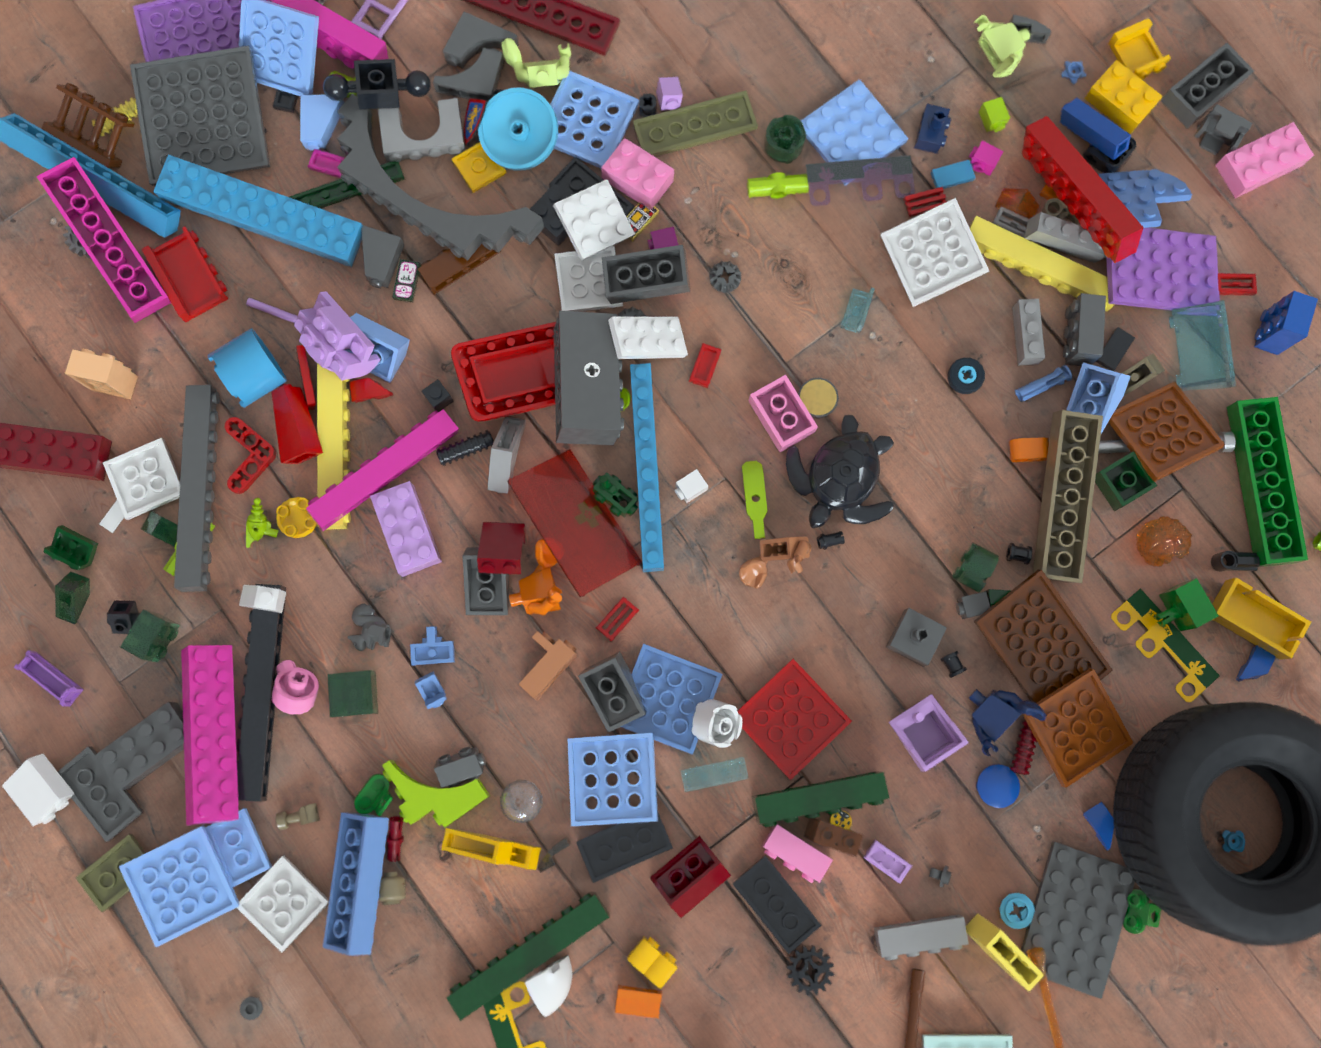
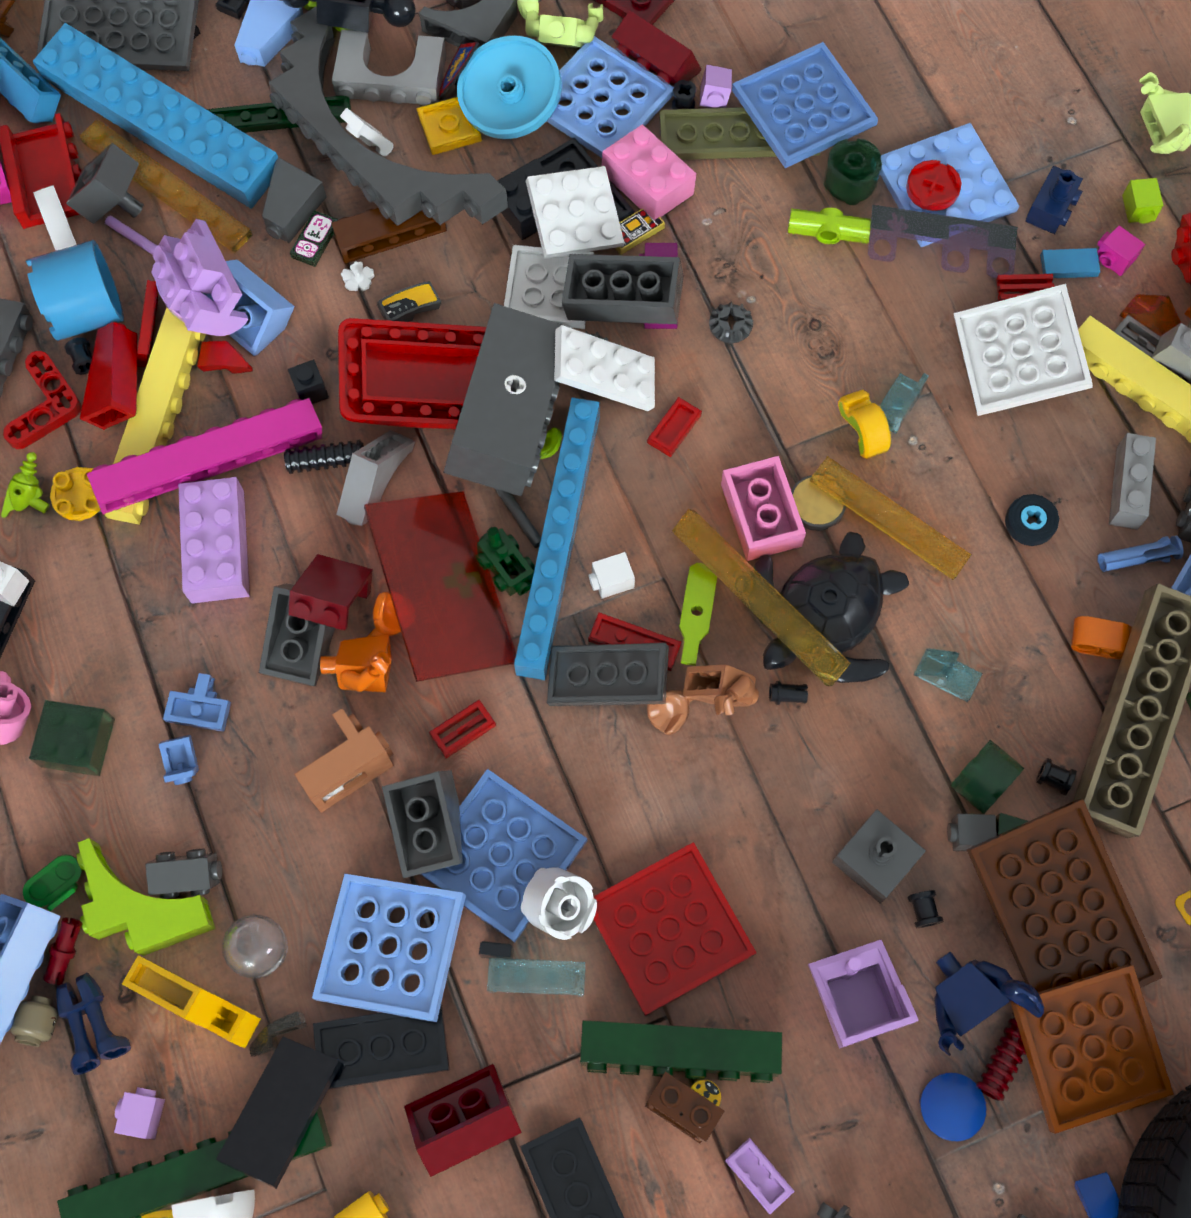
camera: 20 degrees right, 10 degrees down
(211, 314) = (54, 218): none -> white sticker
(240, 278) = (105, 185): none -> dark grey brick
(263, 413) = (79, 351): none -> black bush
(281, 263) = (171, 188): none -> clear yellow plate
(325, 163) = (256, 81): dark pink tile -> none
(373, 629) = (129, 659): dark grey animal -> none
(423, 190) = (366, 132): none -> white hinge
(445, 890) = (108, 1045): none -> dark blue piece
(447, 303) = (357, 277): none -> white plant
(479, 929) = (139, 1114): none -> lavender brick
(490, 316) = (408, 302): none -> slope
(573, 904) = (279, 1112): none -> black tile
(617, 74) = (655, 50): none -> dark red slope
(617, 460) = (520, 517): none -> dark grey piece
(682, 763) = (496, 950): none -> black tile
(707, 558) = (608, 674): none -> dark grey tile
(718, 528) = (615, 631): none -> red tile
(738, 94) = (804, 104): none -> medium blue plate
(796, 854) = (626, 1127): bright pink brick -> none
(797, 480) = (761, 598): none -> clear yellow plate
(839, 331) = (868, 421): none -> yellow animal
(845, 137) = (933, 185): none -> red tile
(870, 398) = (890, 517): none -> clear yellow plate
(933, 499) = (946, 673): none -> clear light blue slope

